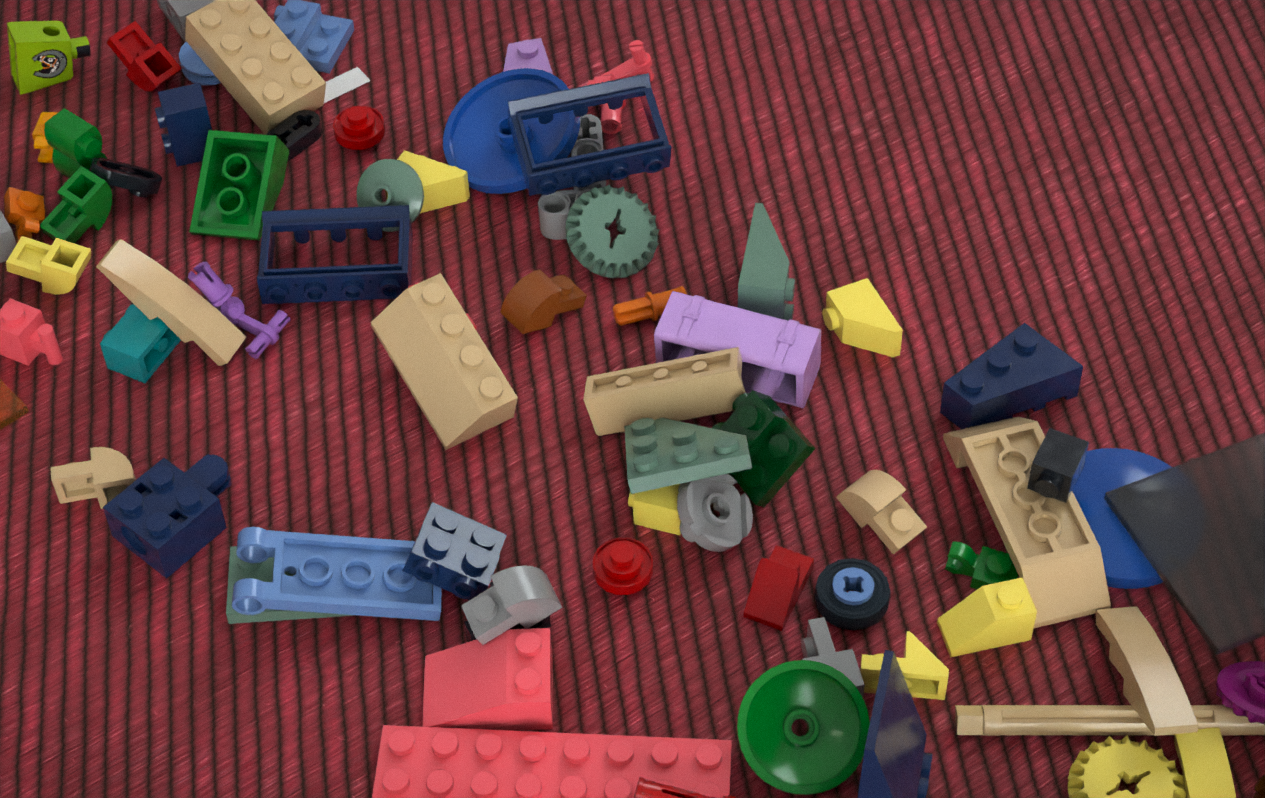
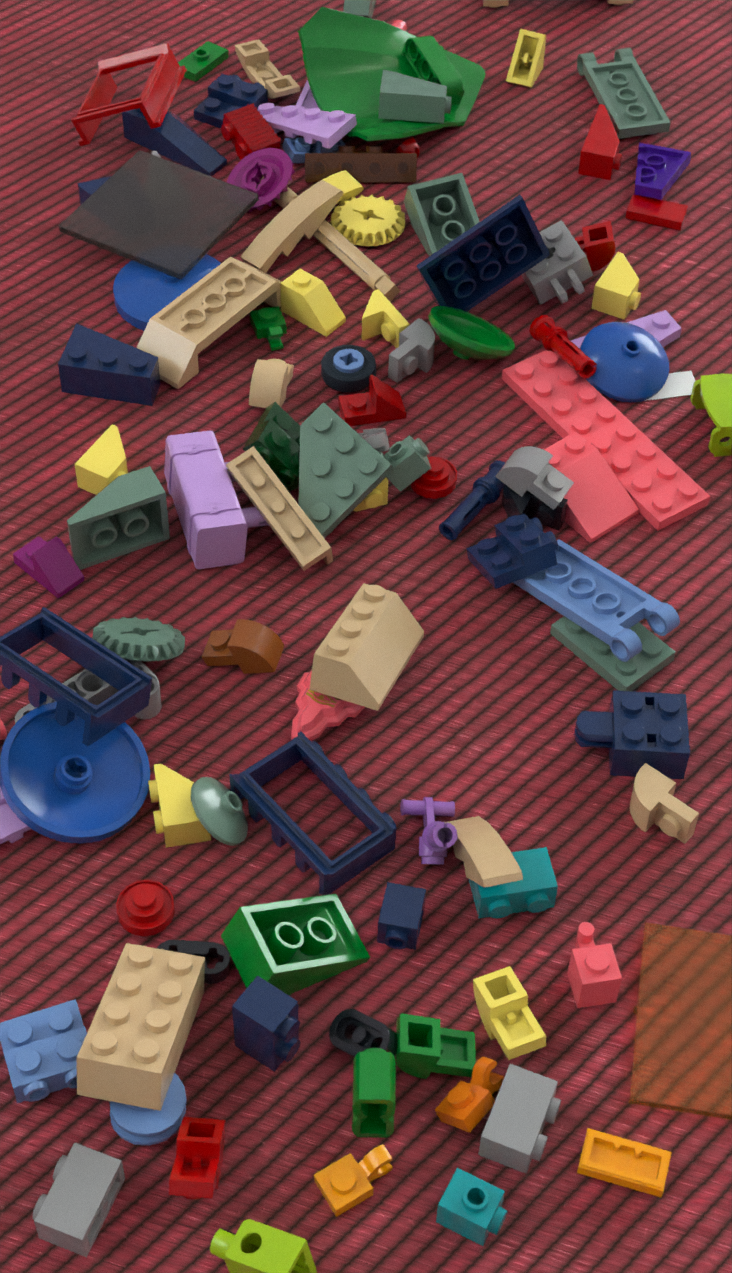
camera: 130 degrees left, 0 degrees up
(188, 249) = (401, 916): none -> dark blue brick
(344, 83) = (81, 982): white sticker -> none
(571, 598) = (485, 491): none -> dark blue pin
(643, 308) = (188, 588): orange axle -> none
(645, 523) = (408, 460): none -> sand green brick
(789, 226) = (49, 565): none -> magenta slope
(1057, 465) = (192, 281): black brick -> none

